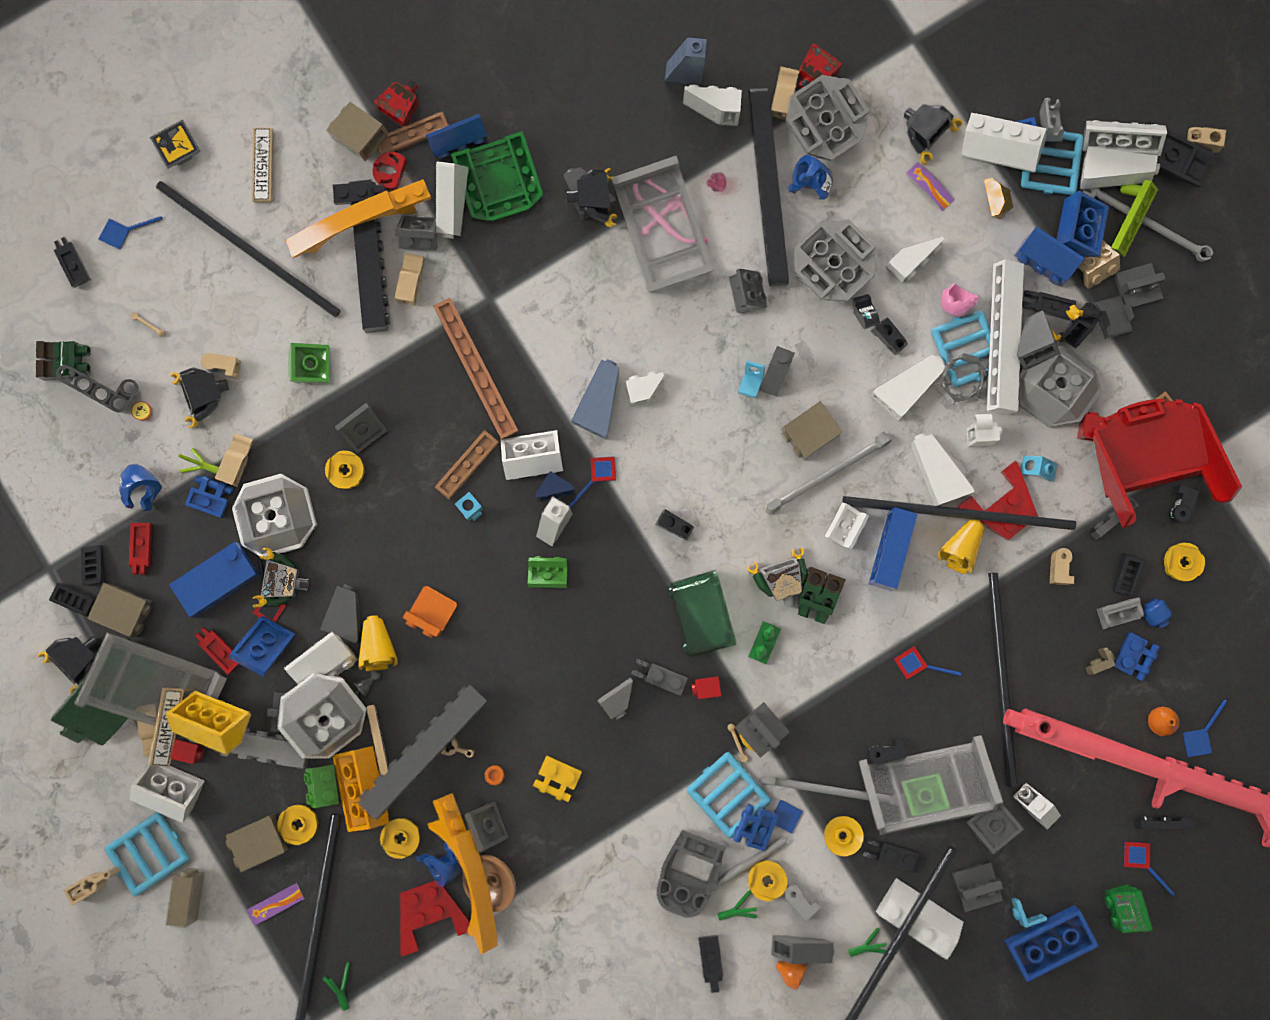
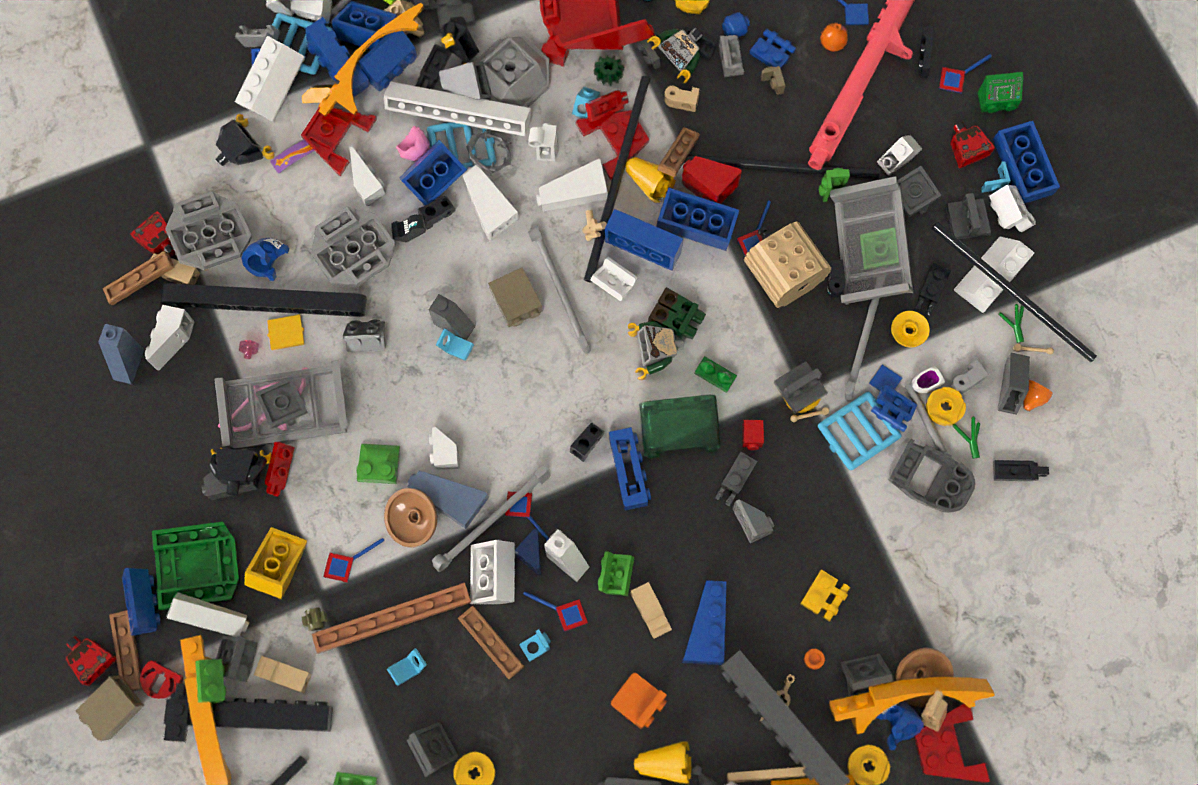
camera: 80 degrees left, 10 degrees down
(388, 214) = (210, 681): none -> bright green bracket
(430, 390) = (407, 668): none -> medium azure bracket
(455, 896) = (935, 711): none -> tan piece
(463, 297) = (314, 619): none -> olive gear
(503, 668) = (708, 630): none -> blue wedge
(504, 535) = (570, 614): none -> piece
(512, 251) = (275, 563): none -> yellow slope
(517, 611) = (650, 610): none -> tan piece
(518, 311) = (339, 566): none -> piece
(535, 404) = (441, 562): none -> light grey hinge
(571, 368) = (402, 520): none -> medium nougat dish
(602, 235) = (278, 468): none -> red hinge
(622, 328) = (378, 463): none -> bright green slope
(648, 581) = (622, 438): none -> blue brick
(661, 223) = (281, 403): none -> dark grey bracket
(740, 214) = (285, 332): none -> yellow piece
(770, 62) = (138, 277): none -> medium nougat tile
(790, 859) = (928, 380): none -> rock
(843, 950) = (1017, 347): none -> tan hinge
(889, 699) = (787, 263): none -> tan piece
(899, 495) = (592, 228): none -> tan piece
(926, 601) = (697, 219): none -> blue brick
(929, 325) = (432, 173): none -> blue slope
(959, 211) = (326, 133): none -> red wing
(970, 609) = (710, 179): none -> red slope
(992, 737) = (833, 180): none -> bright green bracket
(994, 931) = (1011, 209): none -> white hinge
(996, 571) = (678, 152): none -> medium nougat tile
(1000, 218) = (343, 92): none -> light orange slope
(1037, 489) = (606, 105): none -> red hinge
(1038, 204) = (331, 55): none -> blue wedge
(1062, 880) = (970, 145): none -> red torso
(1086, 487) = (608, 70): none -> dark green gear
(1115, 556) = (679, 49): none -> torso

